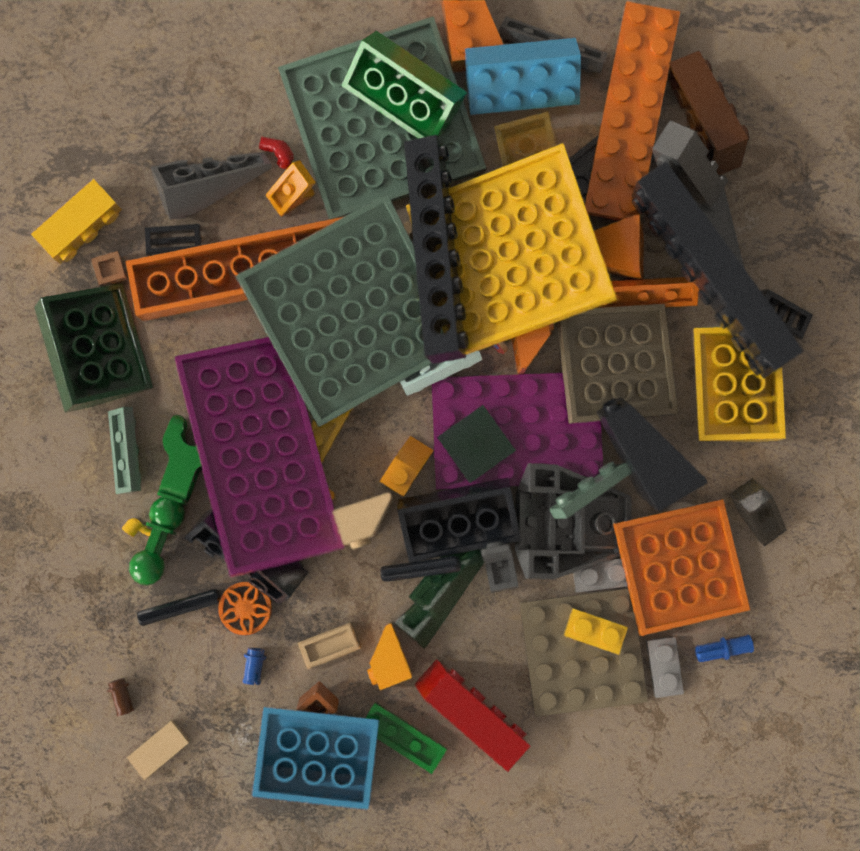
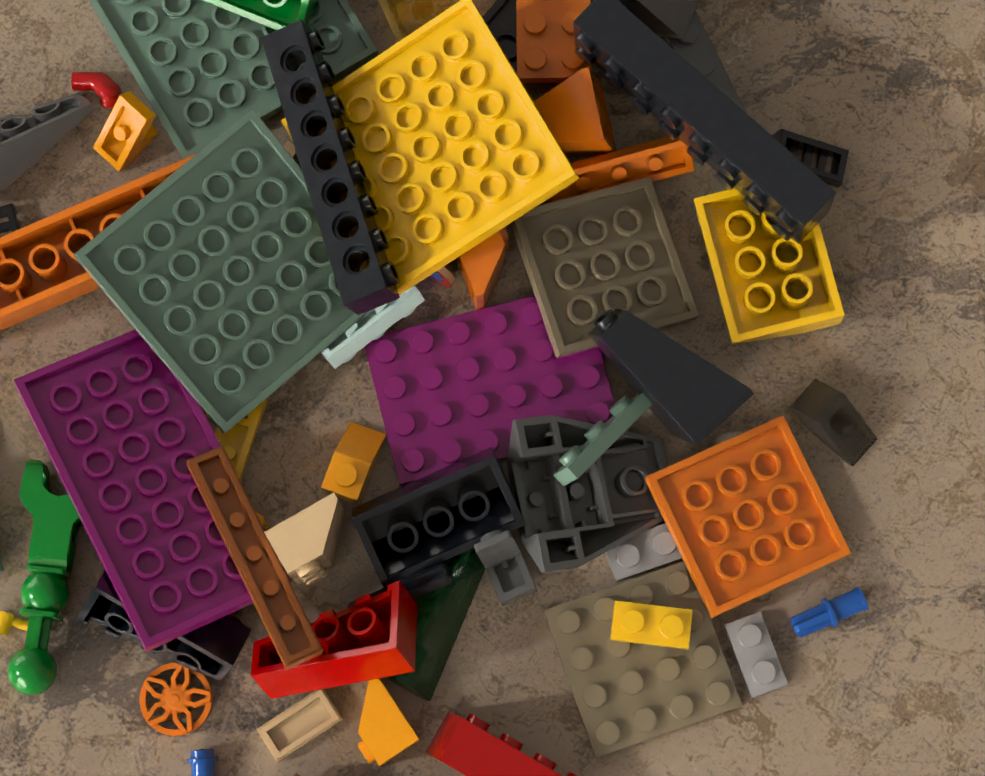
camera: 10 degrees left, 5 degrees down
(178, 607) = (85, 717): black axle -> none
(321, 524) = (254, 557): none -> dark orange tile
(370, 600) = (358, 645): none -> red wedge
(476, 444) = (439, 412): clear green plate -> none

